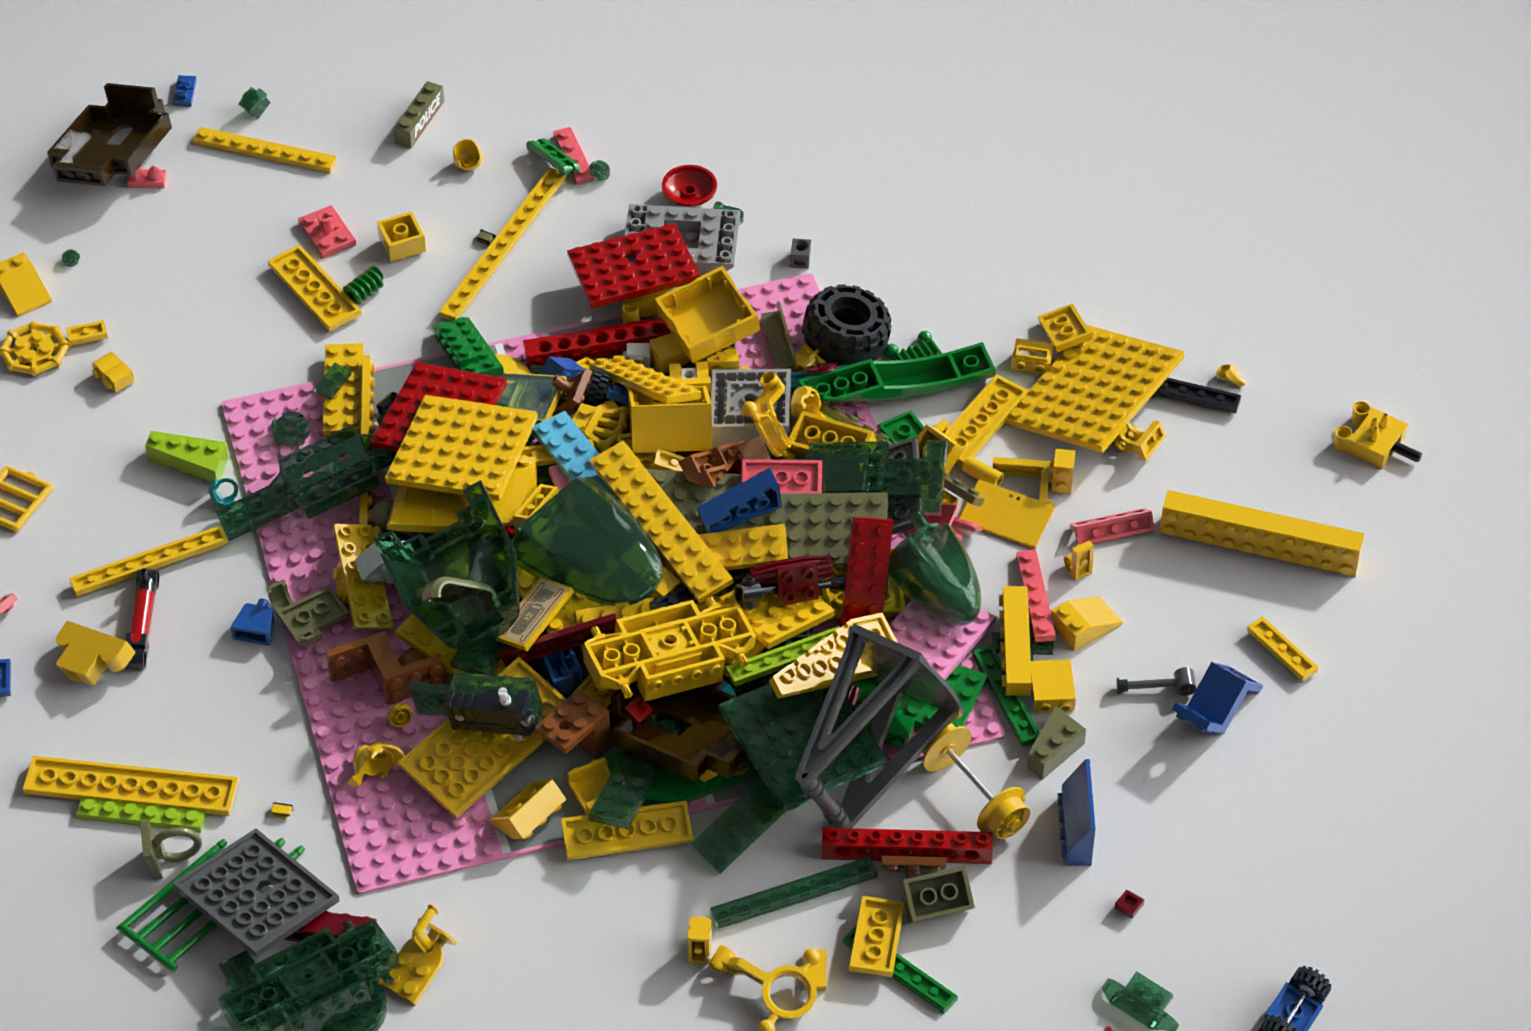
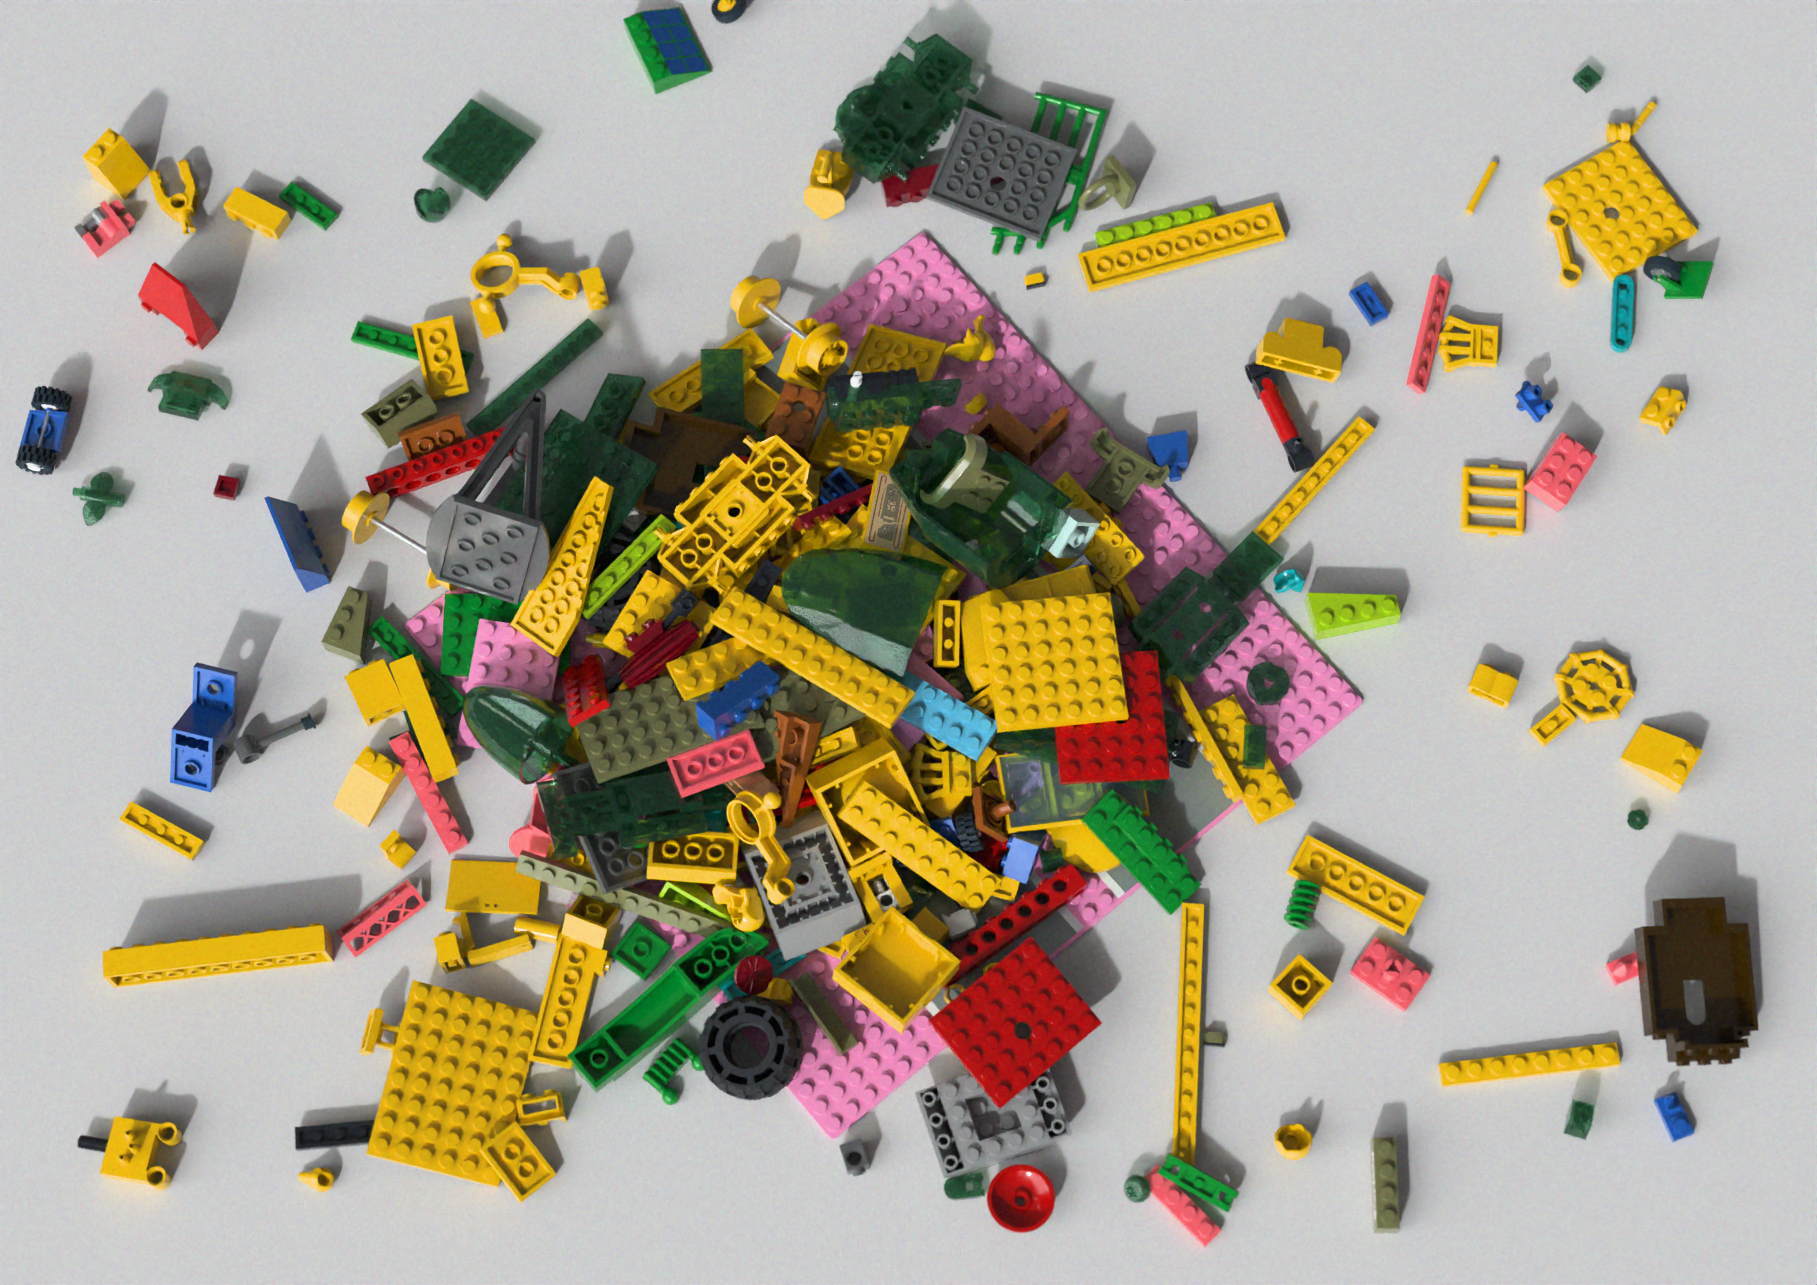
camera: 160 degrees right, 20 degrees up
(514, 778) = (822, 349): none -> yellow piece
(1256, 941) = (98, 497): none -> clear green plant

